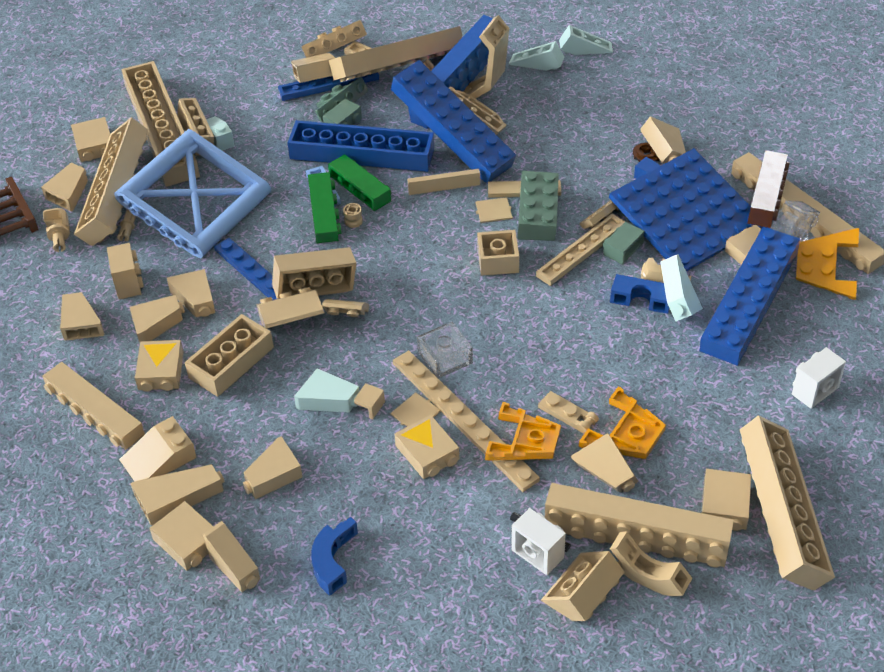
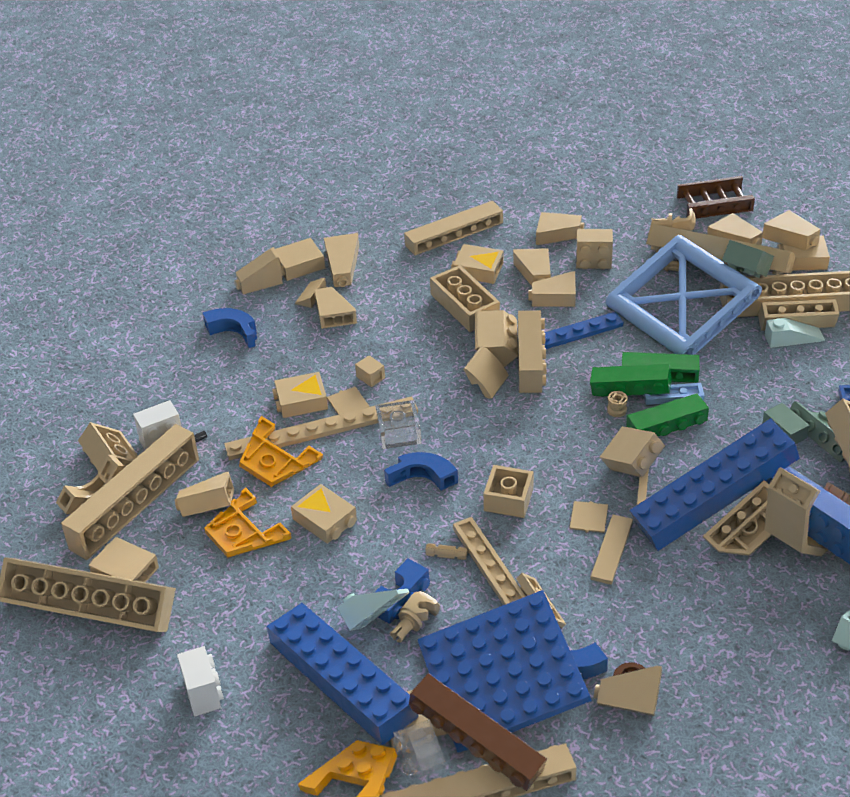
camera: 110 degrees right, 5 degrees down
(76, 136) = (791, 231): none -> tan slope
(149, 140) = (747, 259): none -> sand green brick
(159, 451) = (387, 258): slope -> none
(243, 504) = (307, 298): none -> tan slope
(291, 199) = (682, 366): none -> green brick
(326, 393) = (395, 348): light aqua slope -> none
(363, 144) = (725, 418): blue brick -> none
(424, 181) = (632, 451): none -> tan brick
(488, 310) = (422, 465): none -> blue arch
(538, 206) = (567, 541): sand green brick -> none
(567, 412) = (285, 496): tan plate -> none
(578, 282) = (446, 551): none -> tan axle
(581, 371) = (324, 513): none -> tan brick
(623, 242) = (479, 596): sand green brick -> none

